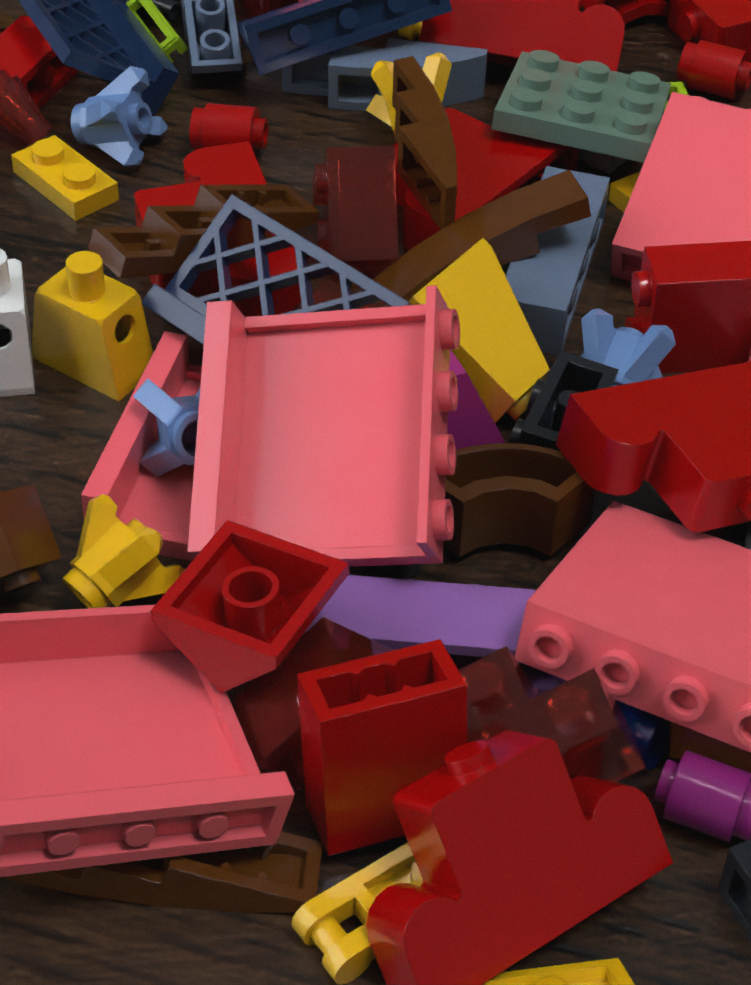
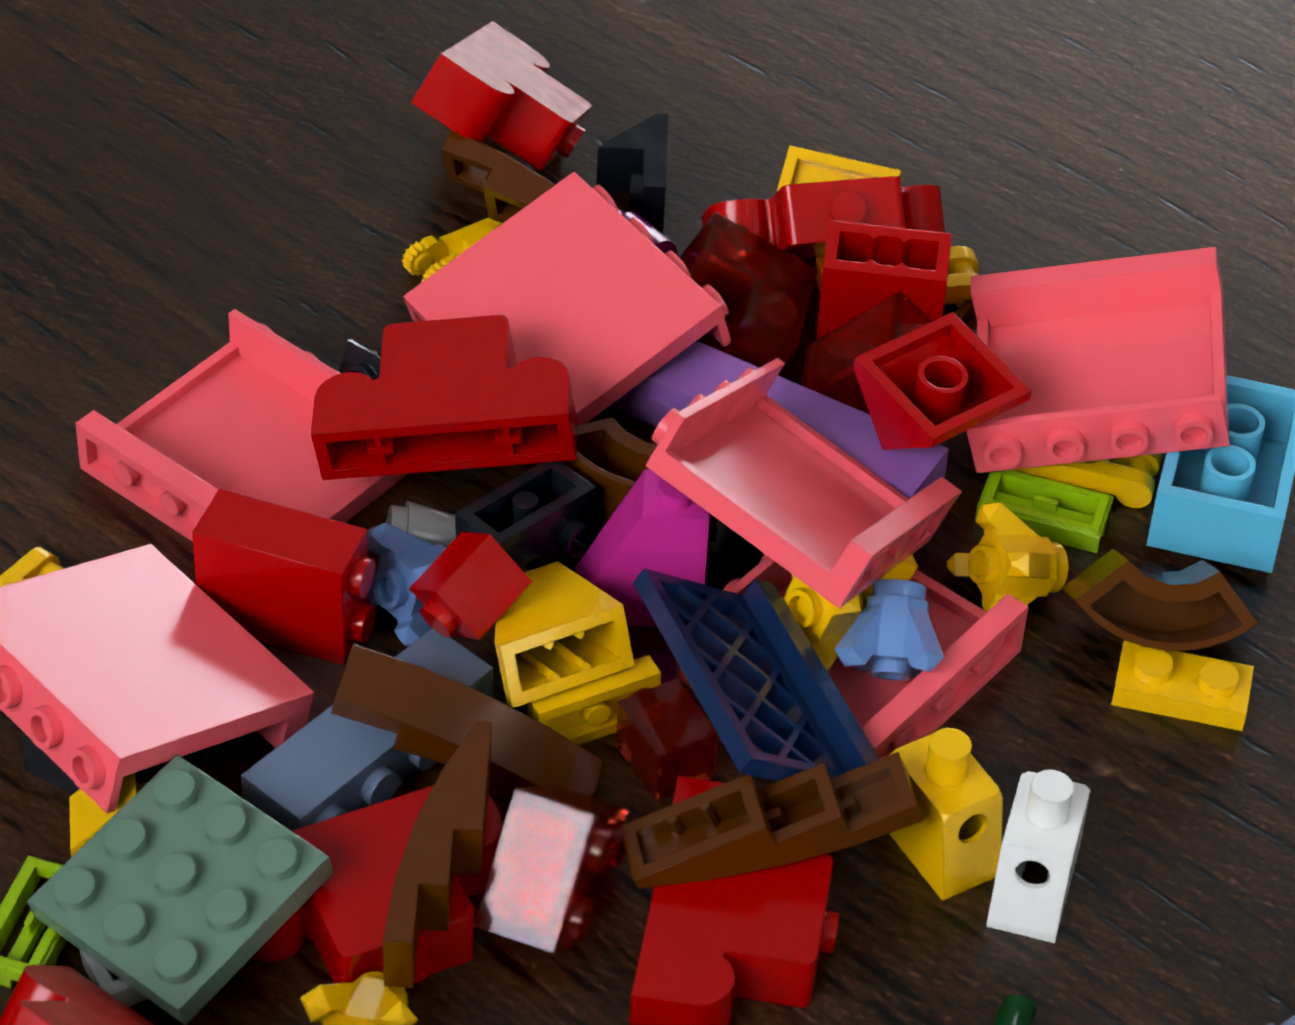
camera: 155 degrees left, 0 degrees up
(549, 294) = (469, 586): none -> red brick

